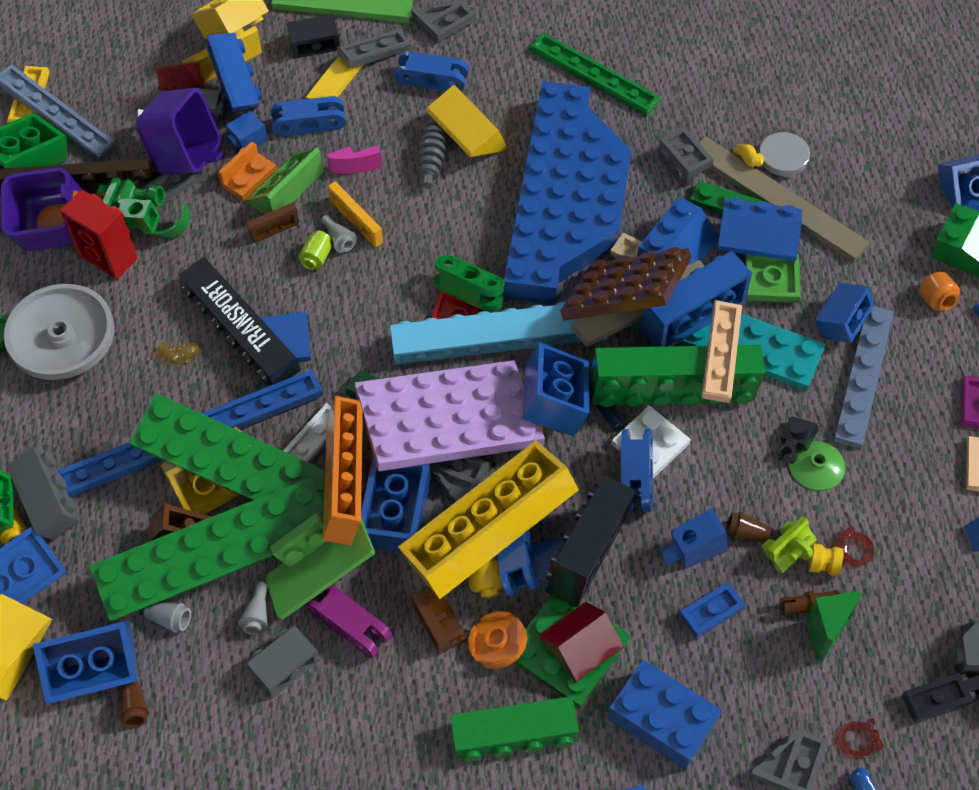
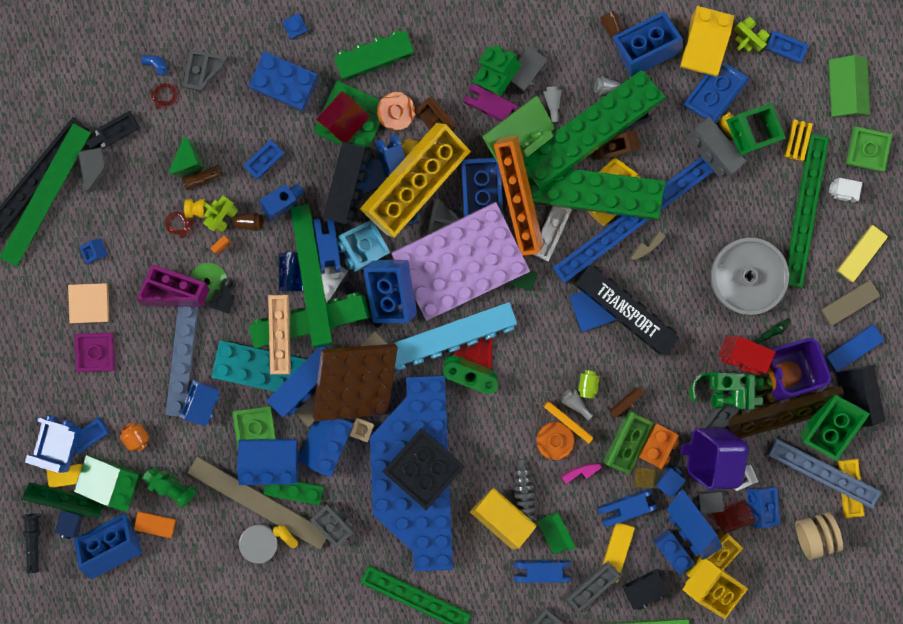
camera: 165 degrees right, 30 degrees up
(52, 272) = (777, 329): none -> dark green hand
(83, 47) = (819, 535): none -> tan wheel
(139, 90) = (764, 506): none -> blue bracket
(179, 354) = (660, 280): clear yellow arm -> none
(191, 389) = (642, 249): none -> dark tan slope
(266, 64) = (673, 552): none -> blue brick
(276, 142) = (645, 478): none -> clear yellow plate
(329, 663) = (496, 70): none -> green plate
(379, 200) = (550, 436): none -> orange tile
(403, 108) = (556, 533): none -> green panel
(555, 178) = (423, 468): none -> black plate
(588, 460) = (362, 246): none -> medium azure plate
(665, 422) = (311, 276): none -> green tile
(694, 448) = (289, 272): none -> clear blue bracket
(792, 503) = (221, 244): none -> orange tile
(870, 451) = (171, 289): none -> magenta wedge
(897, 226) = (169, 485): none -> green hips
(918, 196) = (155, 524): none -> orange tile

